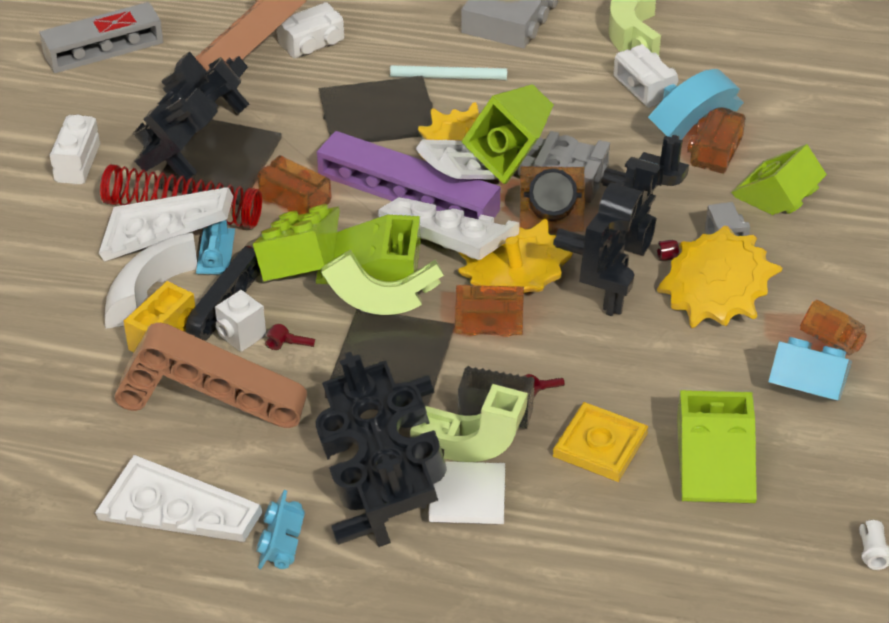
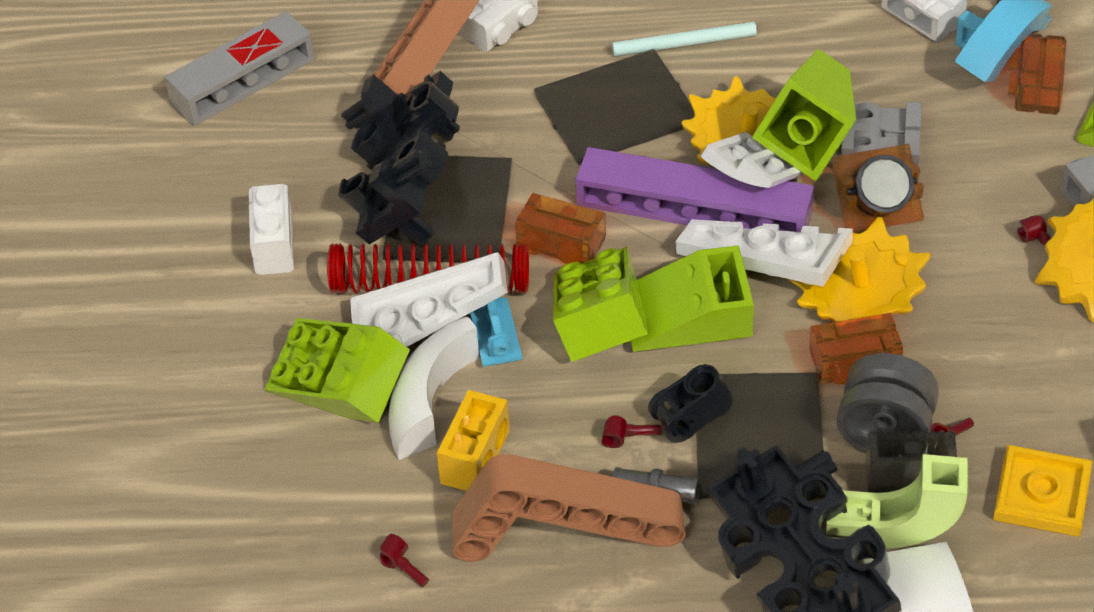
camera: 10 degrees left, 5 degrees up
(71, 389) = (392, 555): none -> dark red hand
(82, 252) = (338, 368): none -> lime slope
(236, 277) = (531, 387): black beam -> none
(240, 320) = (567, 420): white brick -> none
(311, 383) = (687, 487): none -> flat silver pin
(344, 323) = (693, 401): none -> black piece
(378, 296) = (731, 354): yellowish green arch -> none
(493, 342) = (886, 395): none -> flat silver wheel
(623, 222) = (987, 207): black gear -> none

